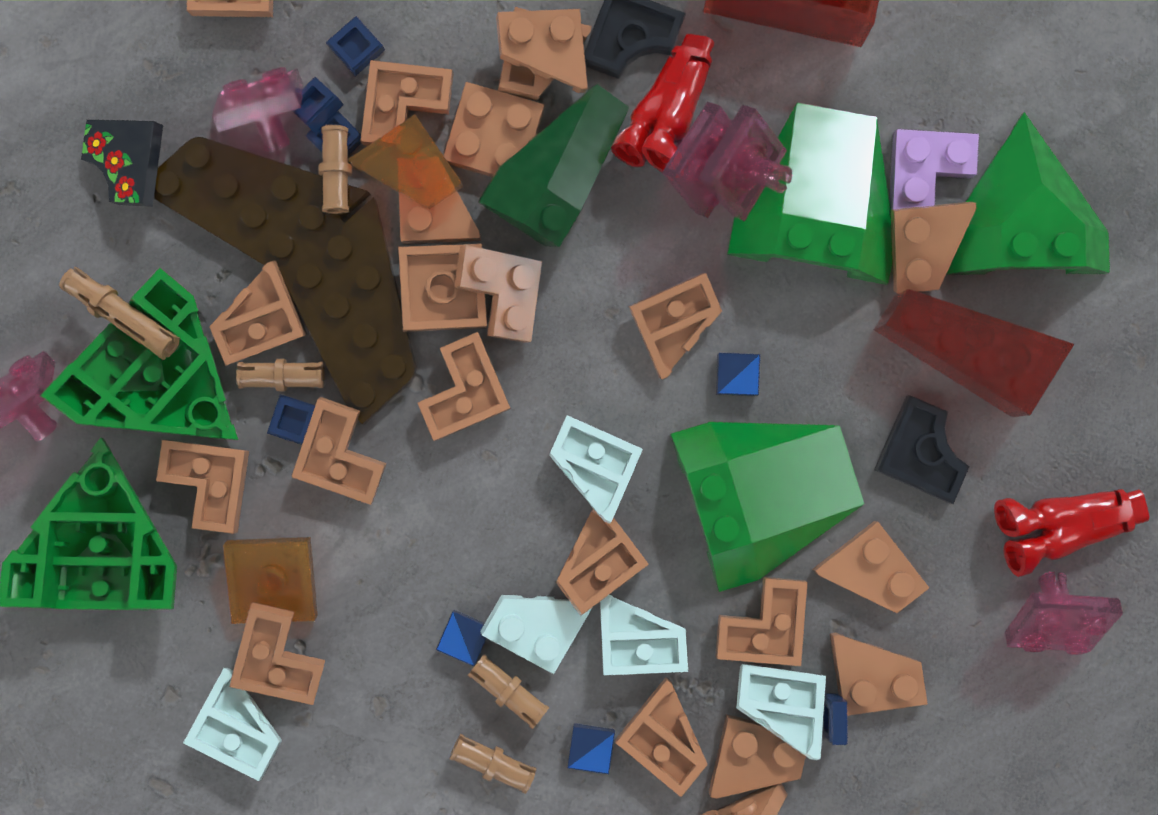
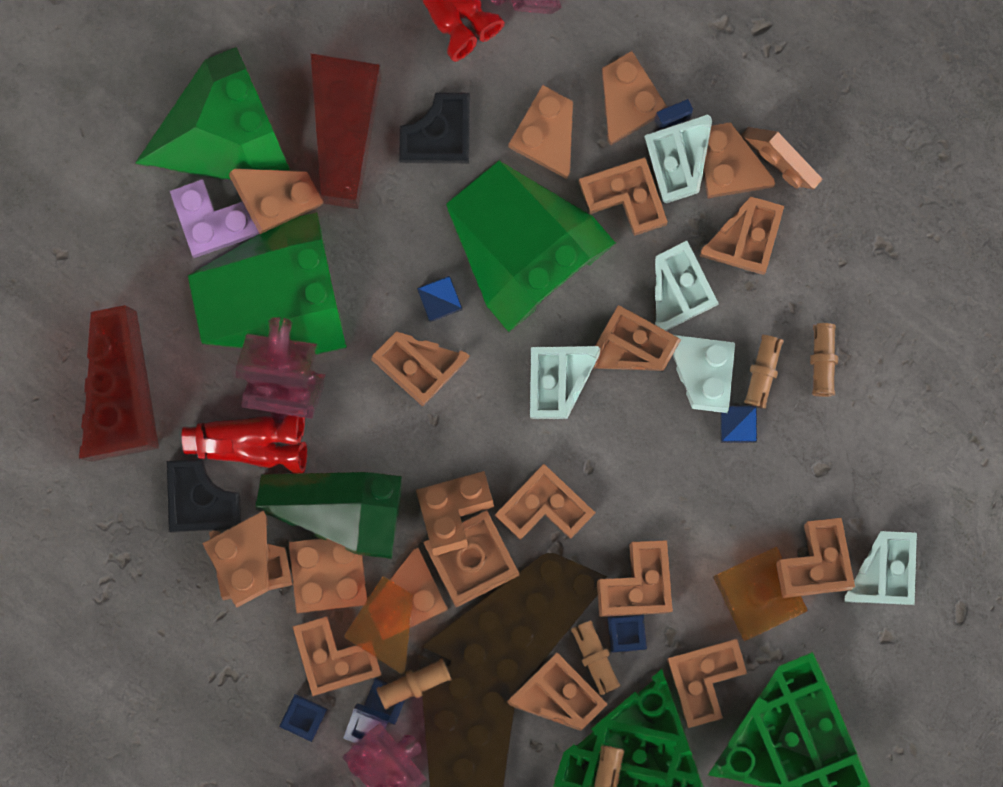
camera: 110 degrees left, 5 degrees down
(591, 748) = (779, 290): tile -> none

